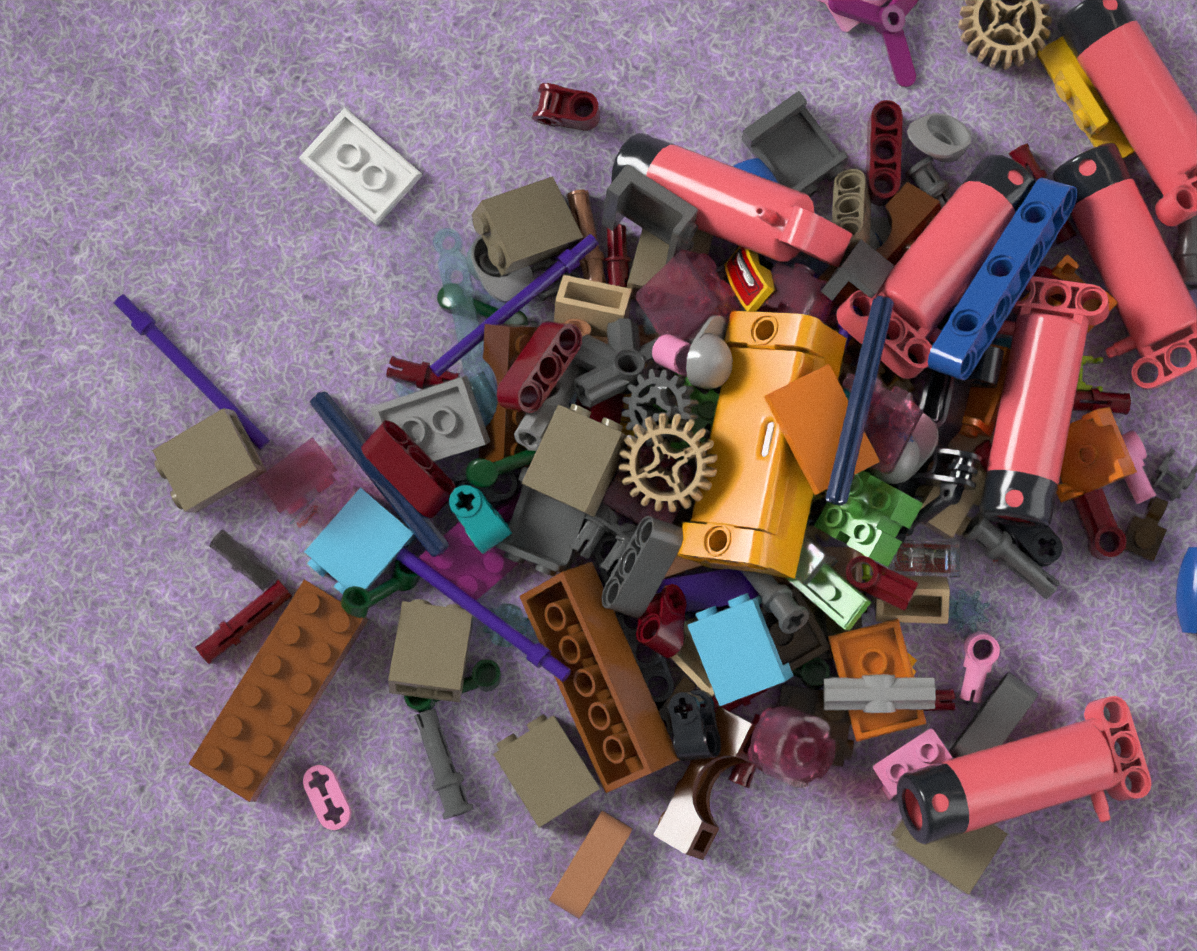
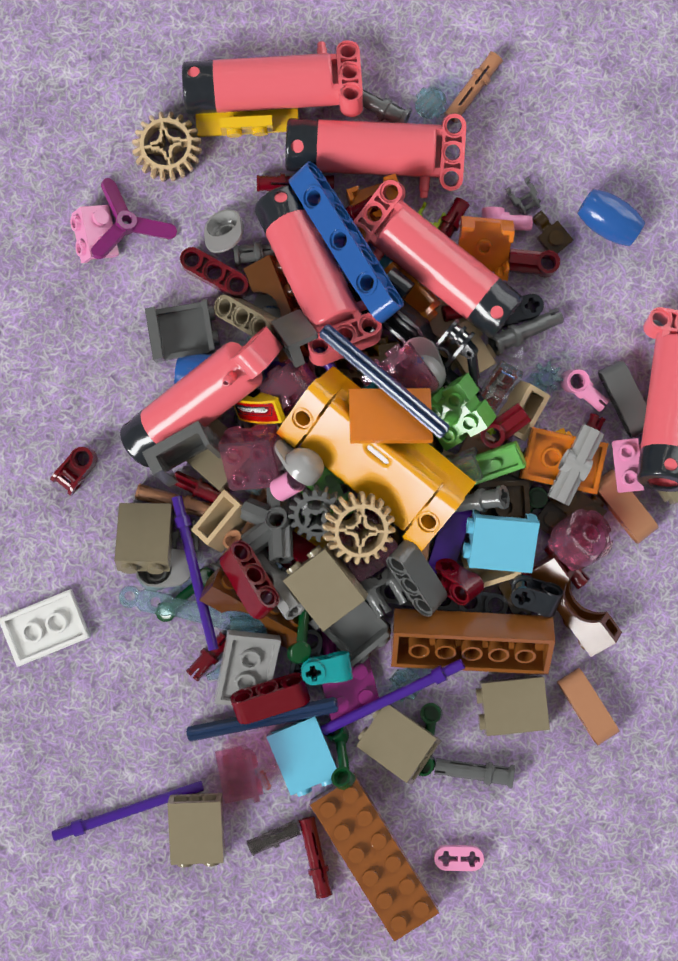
camera: 65 degrees left, 5 degrees up
(857, 790) = (626, 509): none -> nougat beam

